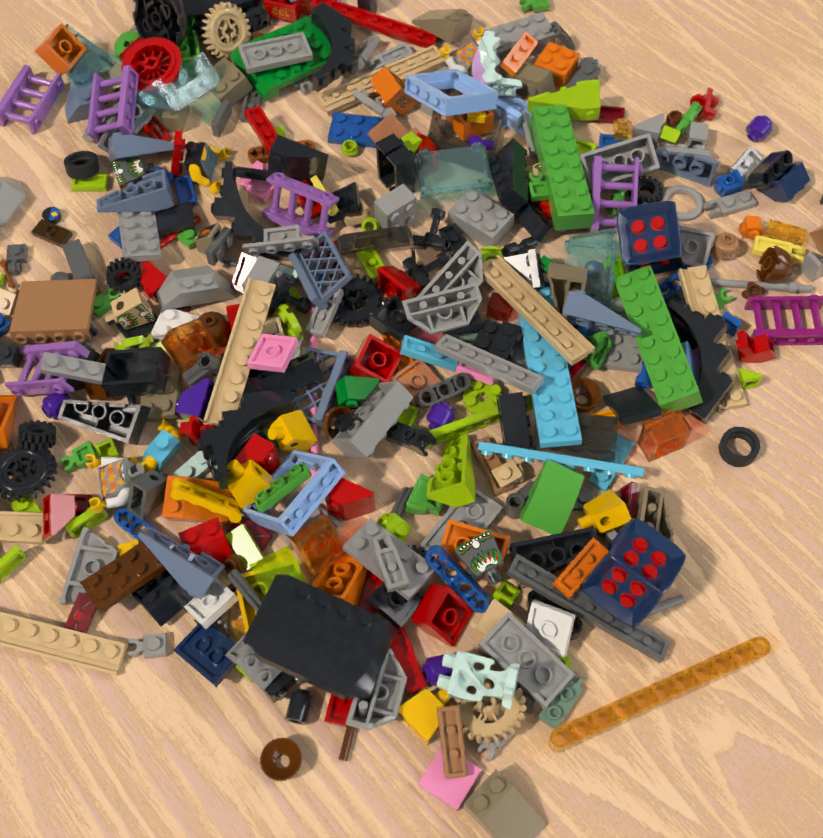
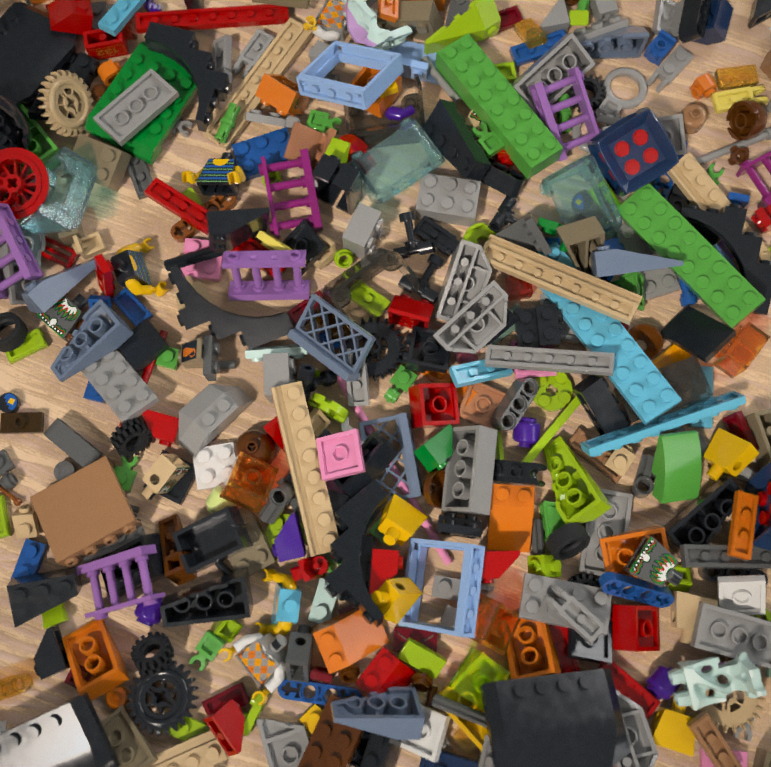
camera: 25 degrees left, 15 degrees up
(72, 368) = (152, 574): light grey plate -> none
(138, 341) = (189, 507): lime plate -> none
(157, 518) = (321, 674): none -> dark red tile
(177, 526) = (349, 674): none -> reddish brown plate
(188, 132) = (89, 245): none -> tan bracket
(206, 498) = (362, 638): yellow plate -> none
(221, 118) = (119, 206): dark grey tile -> none
(243, 268) = (251, 372): tile -> none
(273, 24) = (108, 71): none -> orange plate
(281, 239) = (273, 322): light grey bracket -> none
(282, 486) = (432, 590): bright green tile -> none
(306, 128) = (217, 177): none -> torso
(338, 93) = (227, 123): none -> bright green pin
(344, 422) = (445, 487): black tile -> none
(348, 462) = (459, 527): none -> black plate
(359, 334) = (402, 381): none -> bright green plate
(369, 173) = (306, 181): none -> magenta fence
(389, 473) = (510, 518): none -> orange slope
(412, 121) = (321, 121): none -> bright green plate
(422, 524) = (568, 541): none -> black tyre

